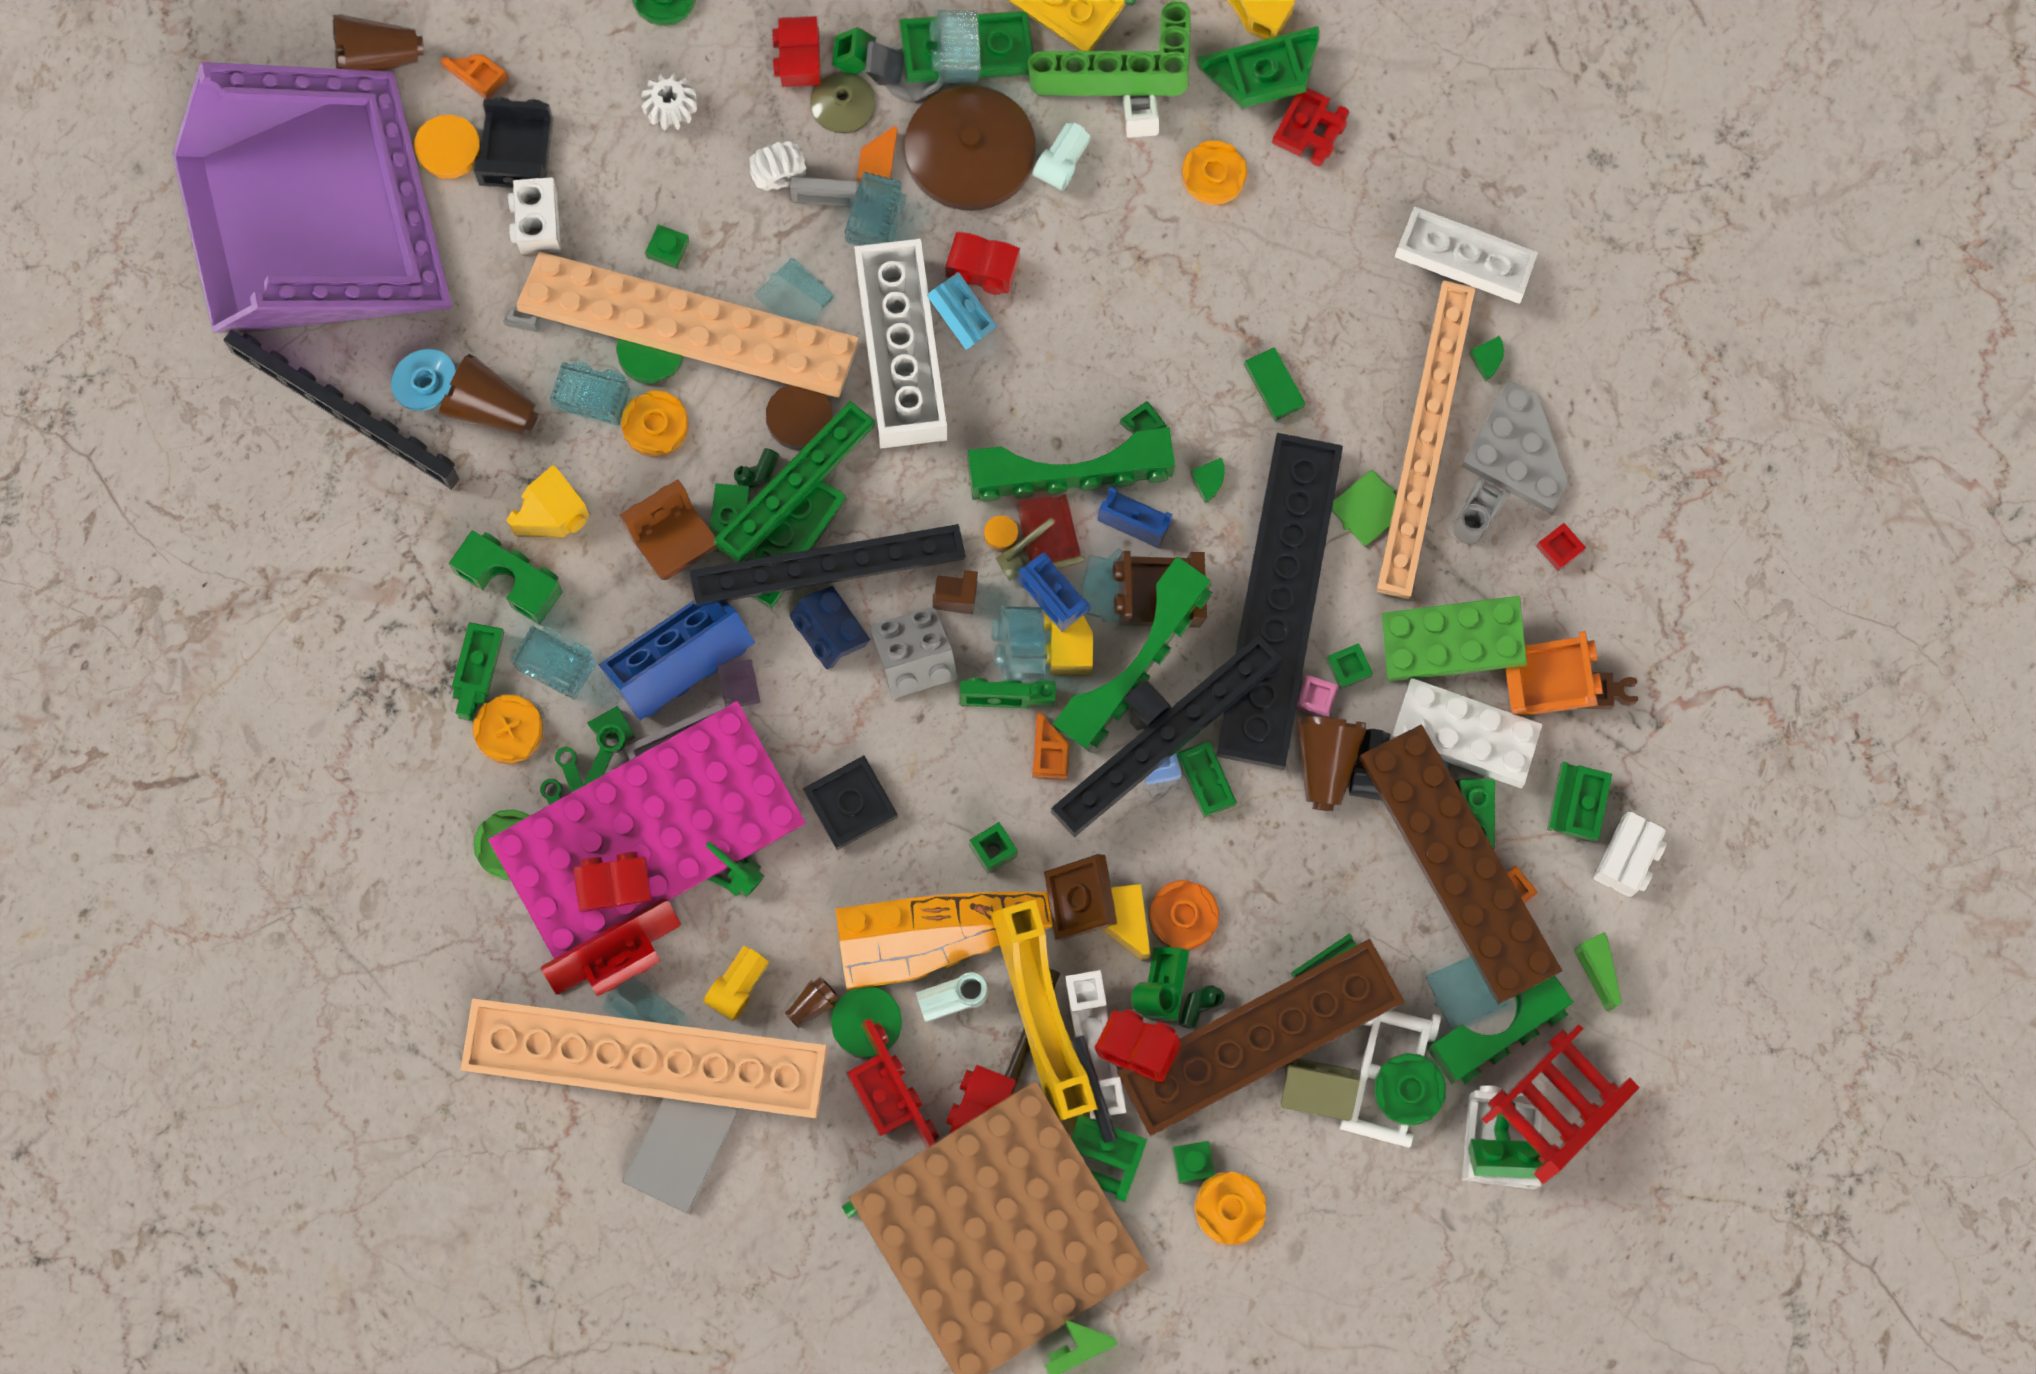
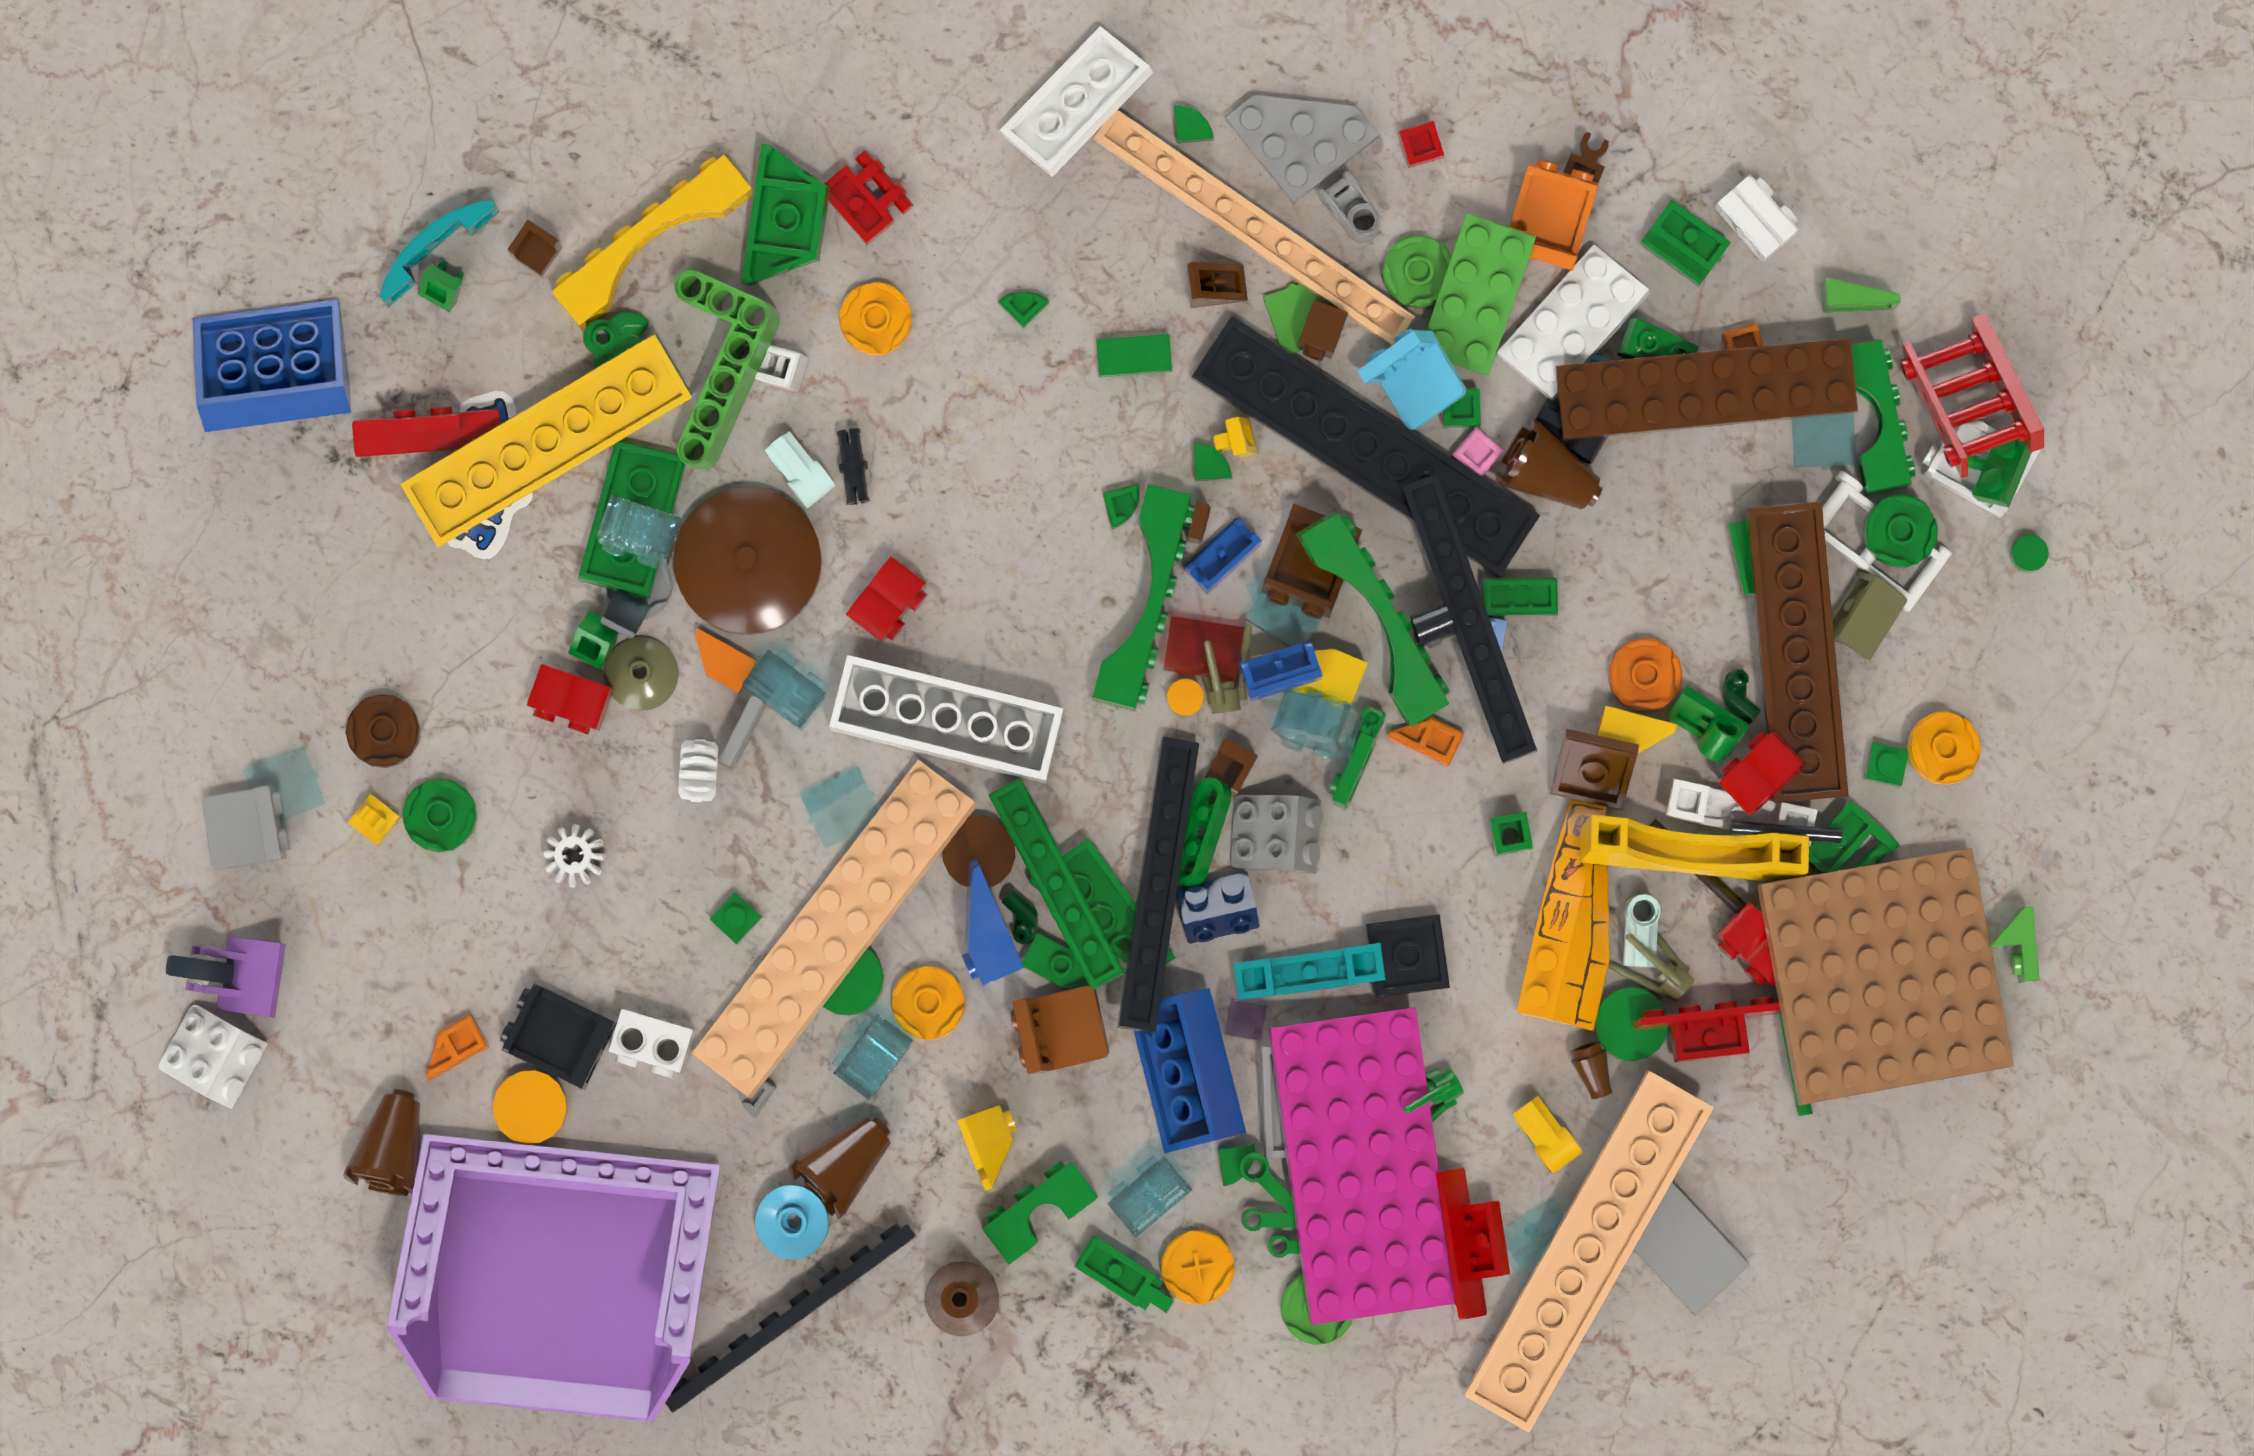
camera: 65 degrees left, 10 degrees up
(408, 541) = (980, 1293): none -> reddish brown cone
(612, 883) = (1409, 1217): red brick -> none
(732, 435) = (987, 940): none -> blue slope
(802, 721) = (1309, 972): none -> teal slope
(890, 587) = (1202, 817): none -> green plate
(921, 1042) = (1672, 979): none -> olive plant
(961, 310) = (937, 642): medium azure plate -> none
(1083, 198) = (853, 466): none -> black pin
(1154, 485) = (1199, 522): none -> reddish brown tile
(1242, 490) = (1238, 438): none -> yellow tile
(1276, 282) = (1023, 306): none -> green tile
(1360, 612) = (1415, 377): none -> medium azure bracket
(1363, 421) = (1216, 284): none -> reddish brown slope
(1363, 522) = (1321, 331): none -> reddish brown brick
(1440, 1218) = (2029, 553): none -> green tile
(1449, 582) = (1415, 271): none -> bright green tile

